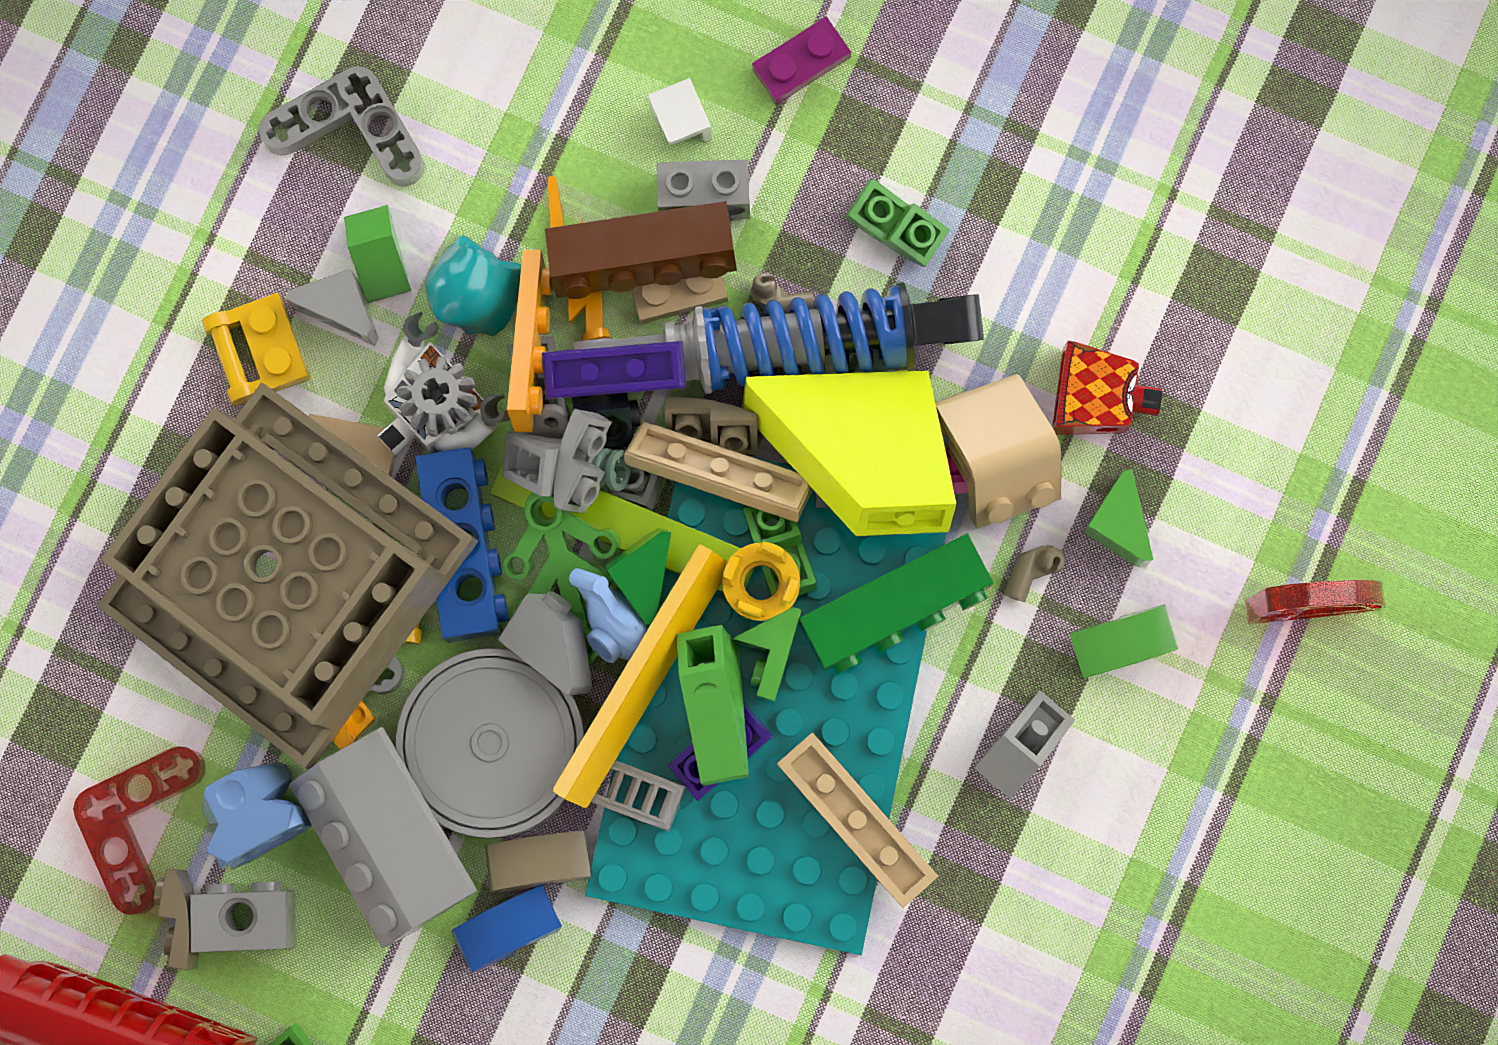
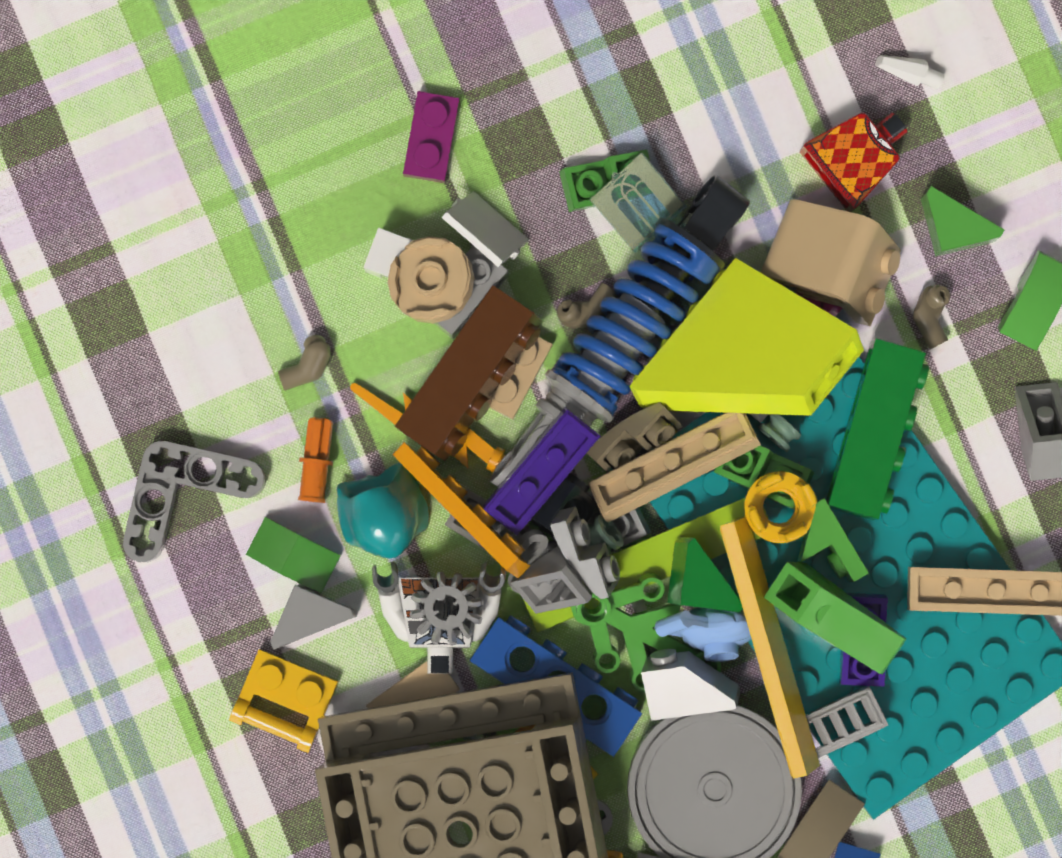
camera: 50 degrees left, 5 degrees up
(466, 202) = (316, 460): none -> orange axle
(536, 131) = (310, 366): none -> dark tan arm
(685, 150) = (431, 280): none -> tan tile
(767, 161) = (485, 228): none -> white piece
(823, 530) = (779, 431): none -> sand green bush
(901, 253) = (636, 202): none -> clear light blue piece
(1210, 375) = (911, 70): none -> white bar

